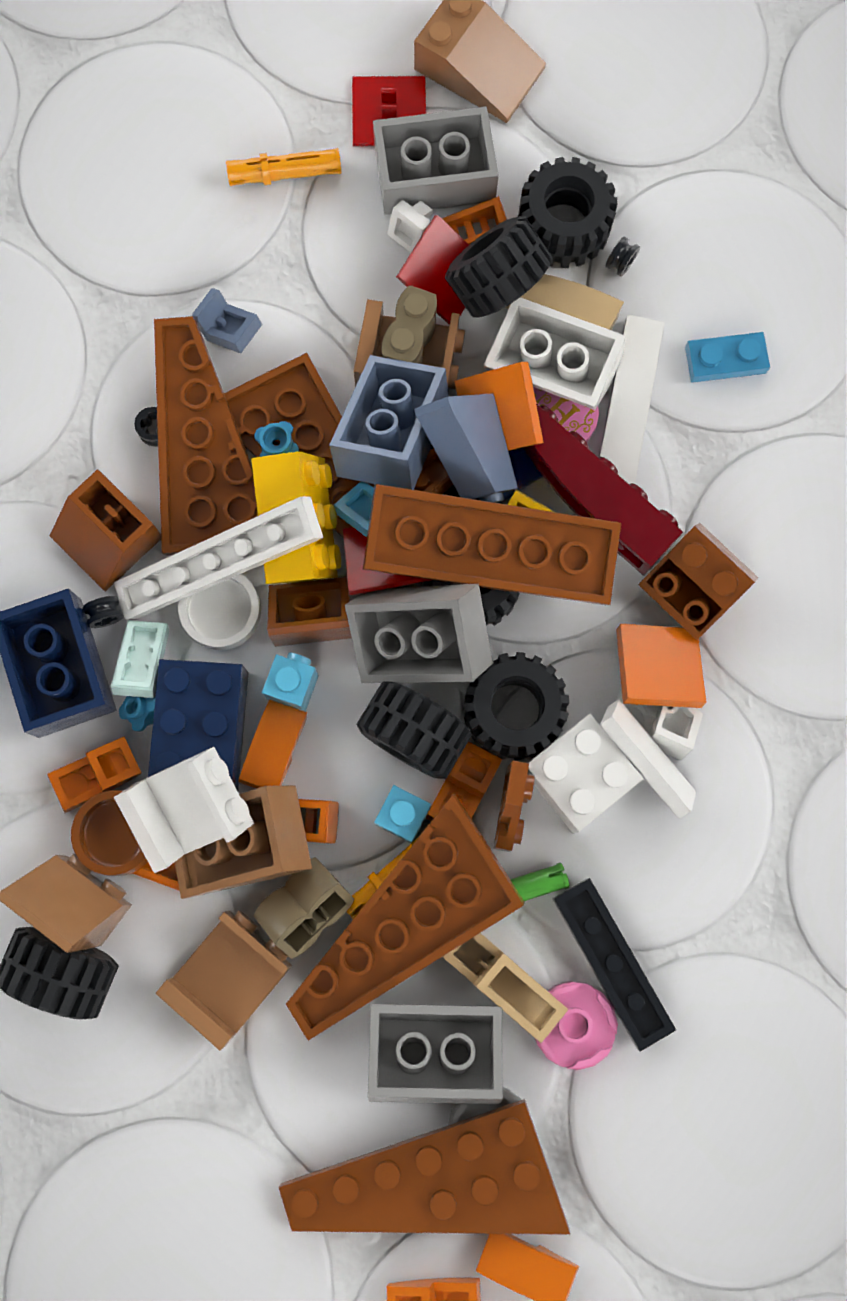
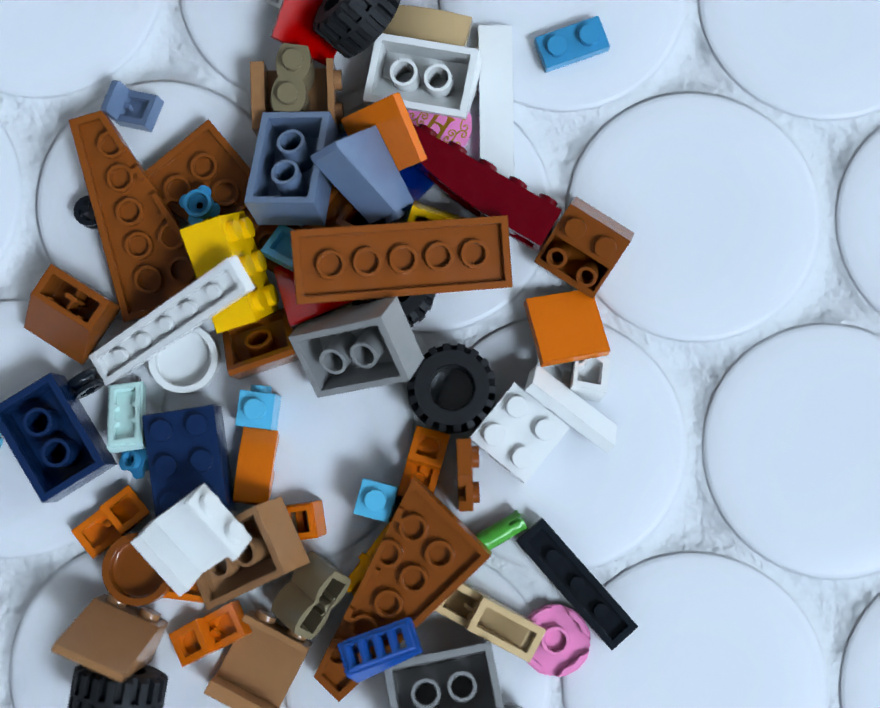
camera: 10 degrees left, 5 degrees up
(177, 927) = (210, 633): none -> orange slope
(353, 974) = (361, 643): none -> blue slope
(414, 729) = (370, 428): black tyre -> none

